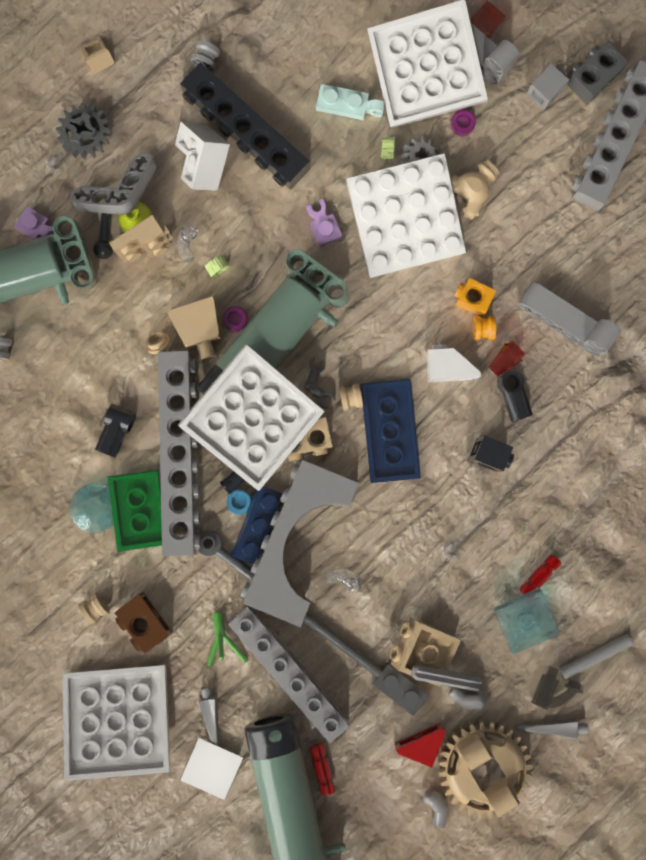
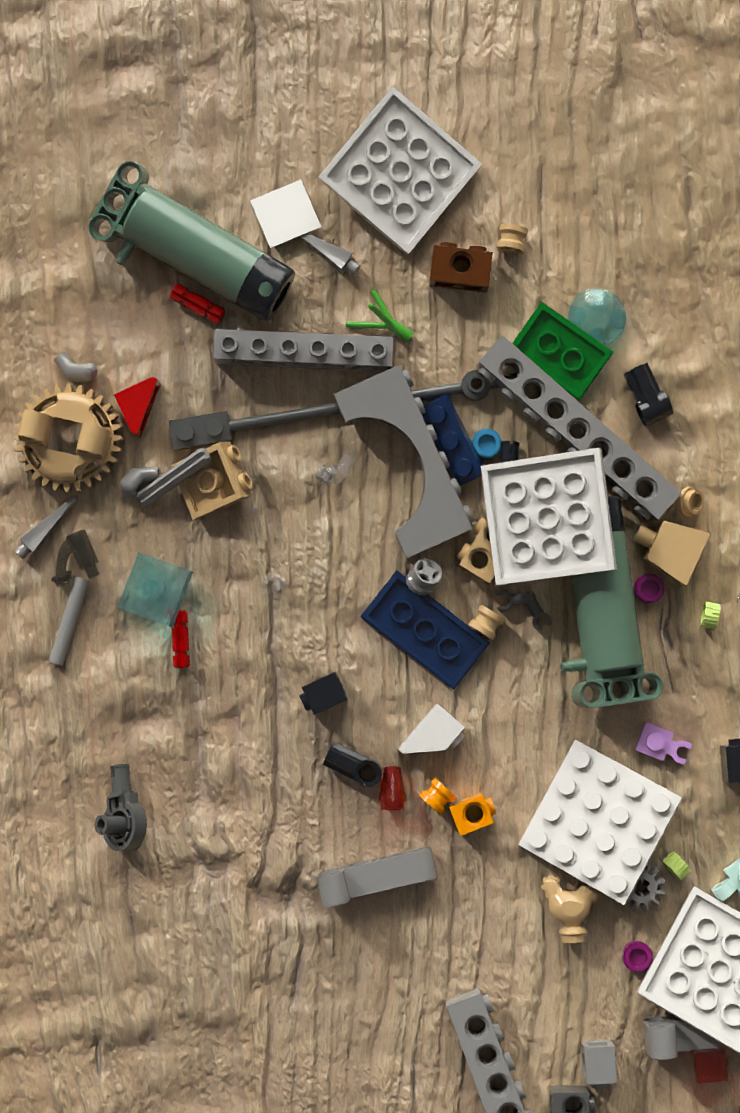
camera: 135 degrees right, 0 degrees up
(353, 464) = (423, 570): none -> light grey wheel

